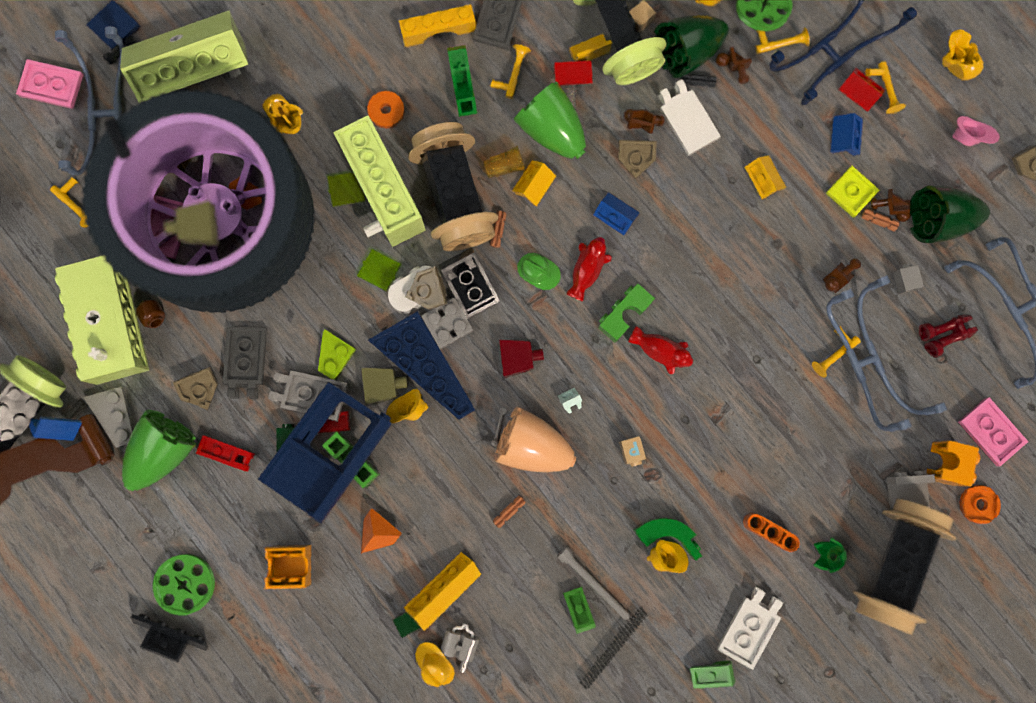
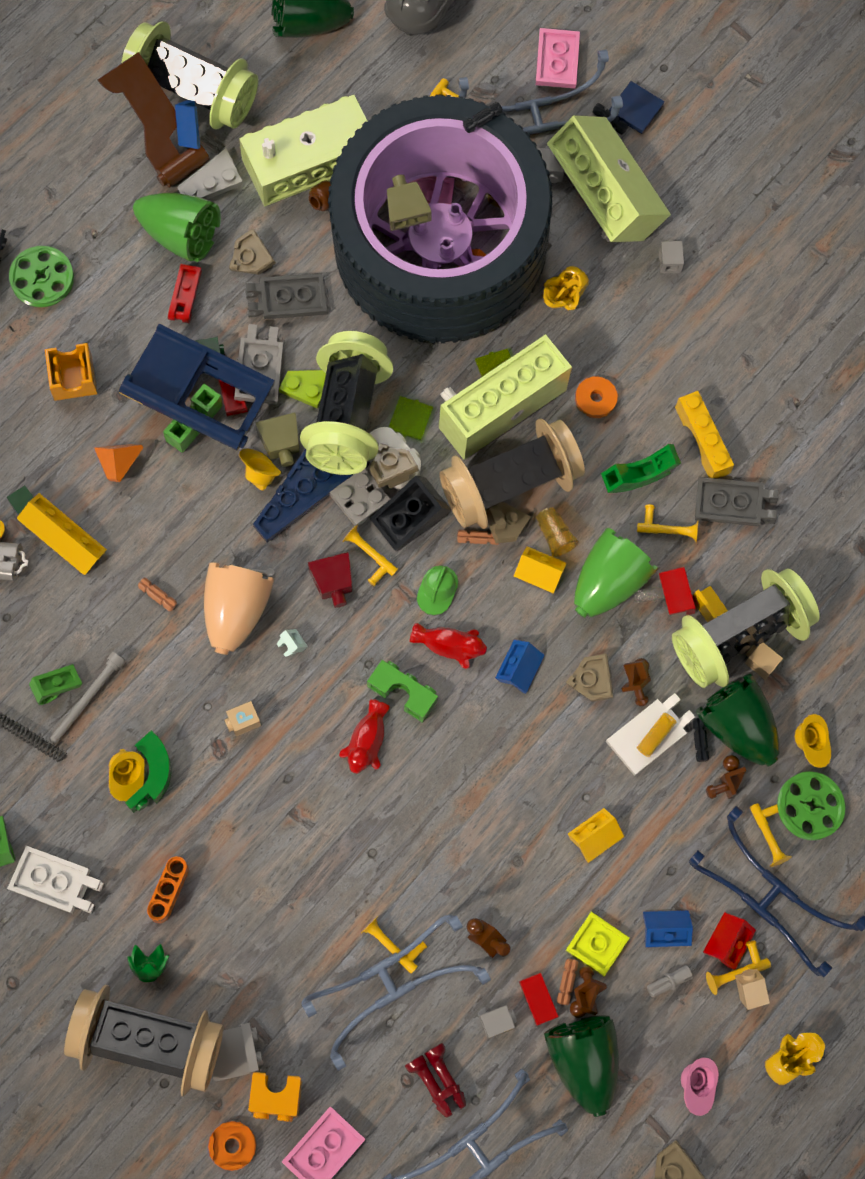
camera: 80 degrees right, 10 degrees down
(266, 21) = (671, 256): none -> light grey brick
(360, 318) = (339, 436): none -> yellowish green brick
(493, 200) = (506, 522): none -> dark tan plate
(511, 311) = (386, 566): none -> yellow piece
(687, 104) = (659, 731): none -> yellow piece
(889, 140) = (670, 981): none -> light grey axle
(891, 244) = (538, 999): none -> red tile
(905, 77) = (752, 989): none -> tan brick

